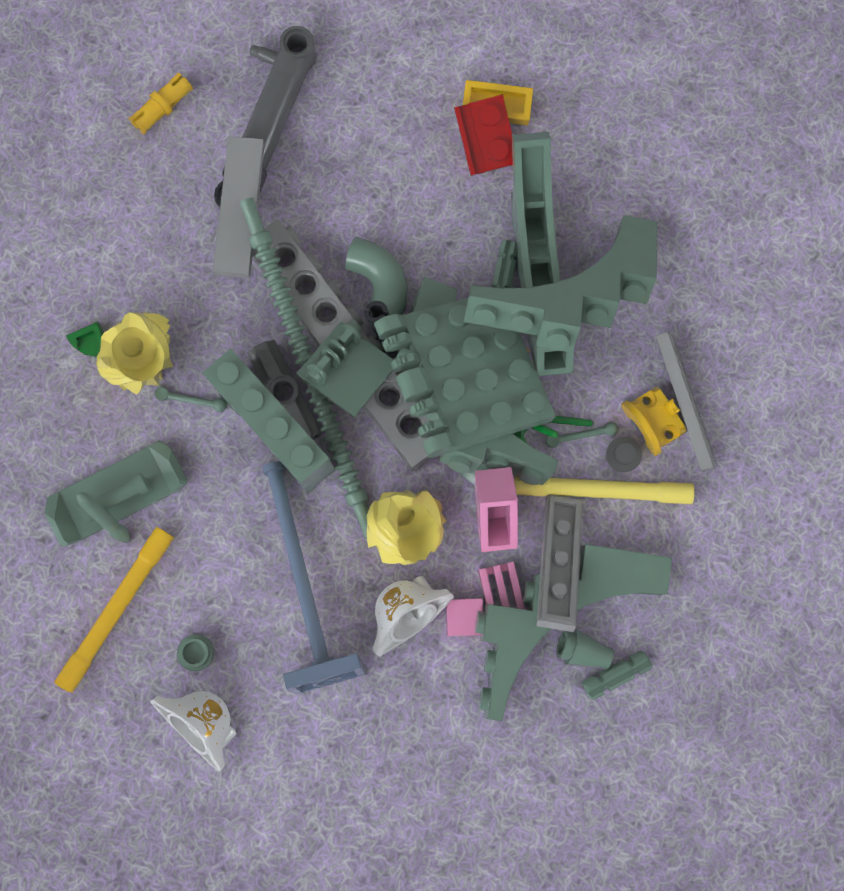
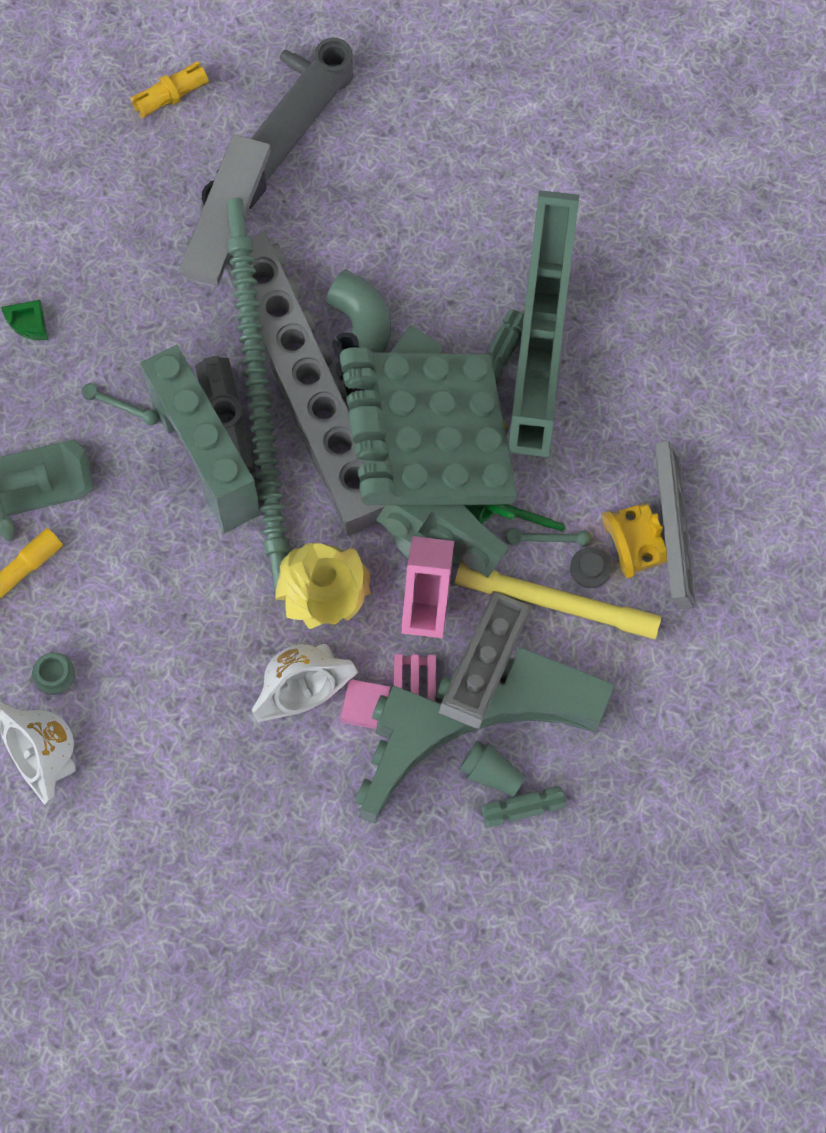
camera: 15 degrees right, 10 degrees down
(135, 351) = (73, 336): light yellow hair -> none
(323, 669) = (191, 717): sand blue tile -> none
(347, 368) = (299, 399): sand green hinge -> none
(485, 134) = (515, 192): red plate -> none
(516, 98) = (539, 164): yellow plate -> none
(591, 297) = (581, 377): sand green arch -> none

